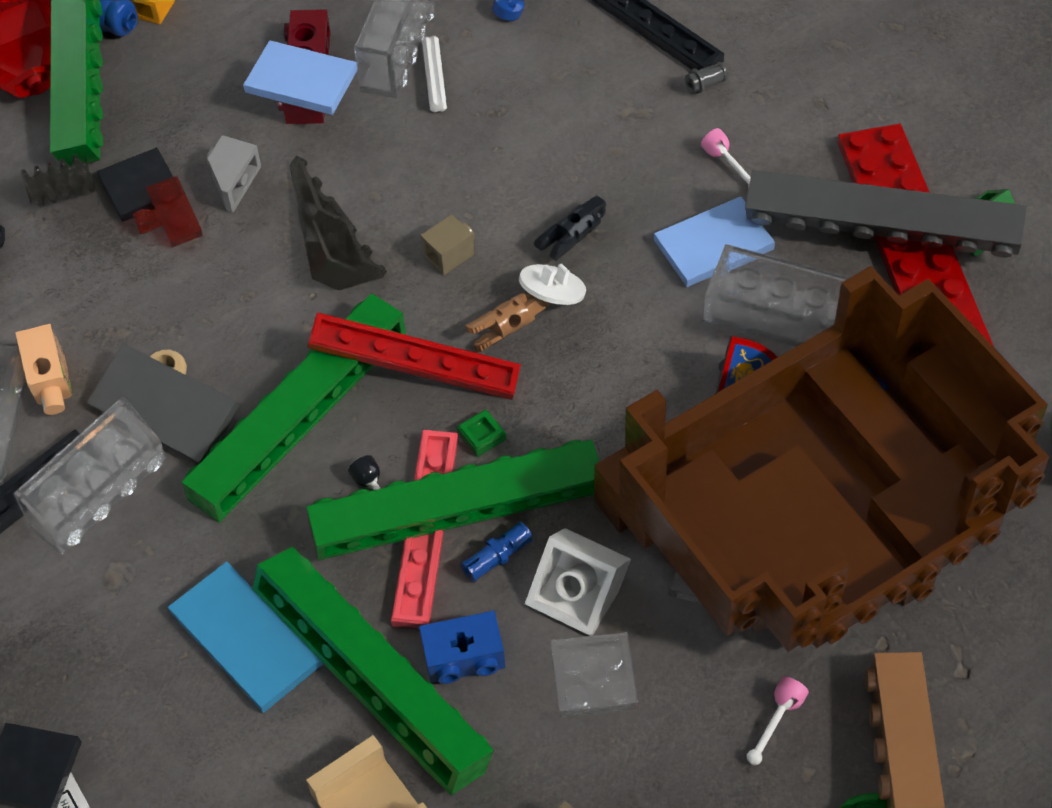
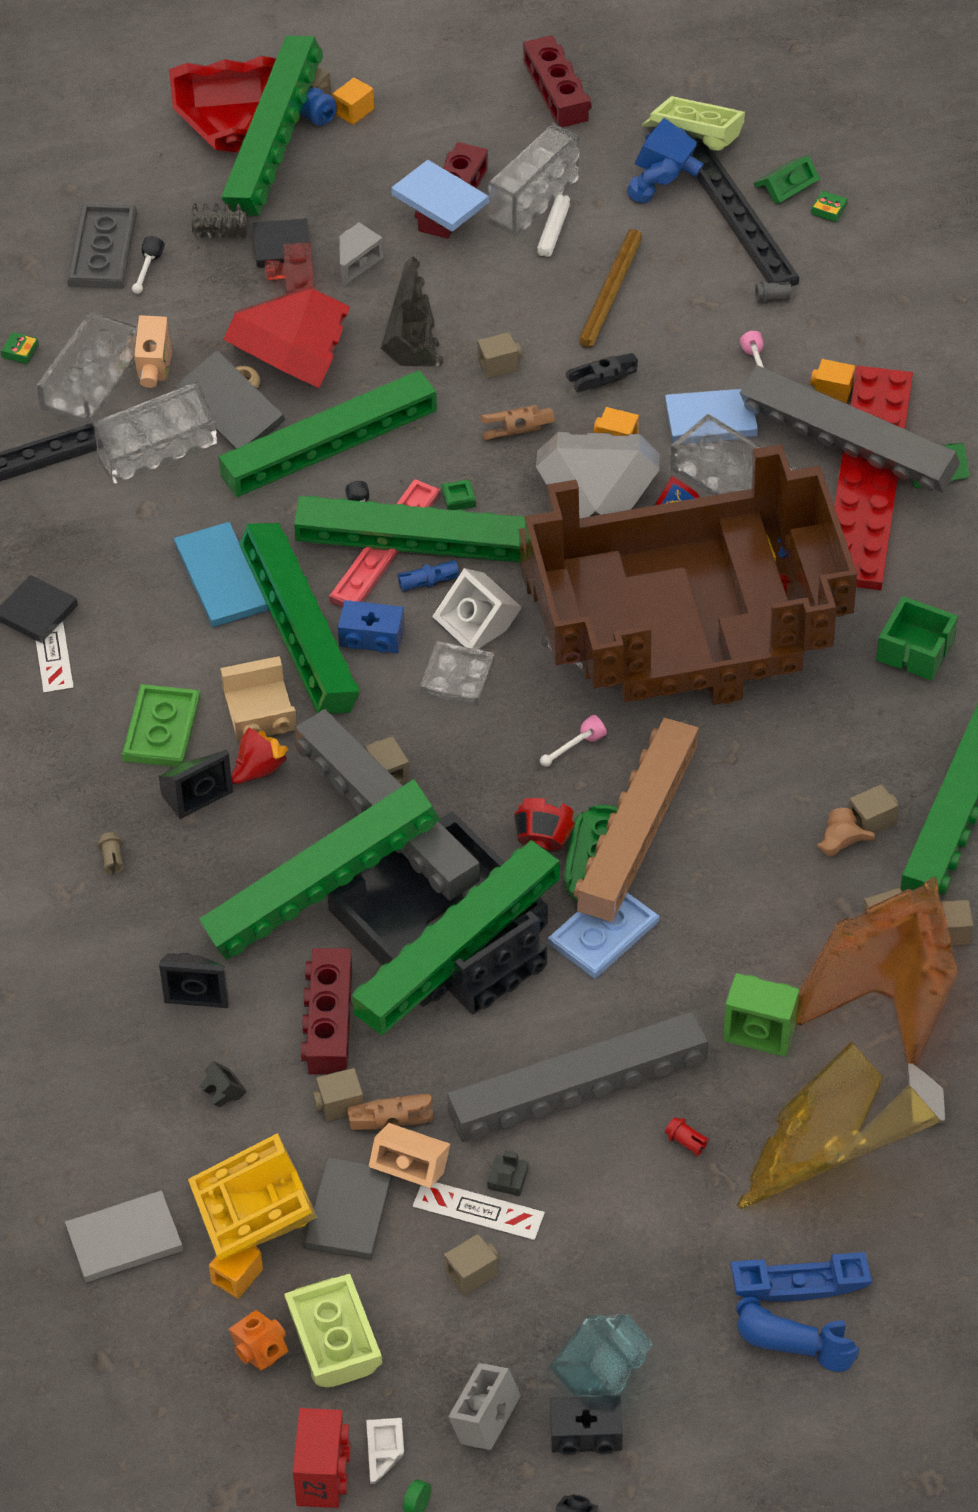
camera: 20 degrees right, 5 degrees down
(203, 293) = (291, 332): none -> red panel
(414, 356) = (431, 424): red tile -> none
(530, 128) = (610, 288): none -> pearl gold axle
(552, 284) = (564, 406): white piece -> none
(624, 293) = (617, 423): none -> light orange brick
(635, 353) = (608, 468): none -> light grey panel
(826, 158) = (834, 379): none -> light orange brick

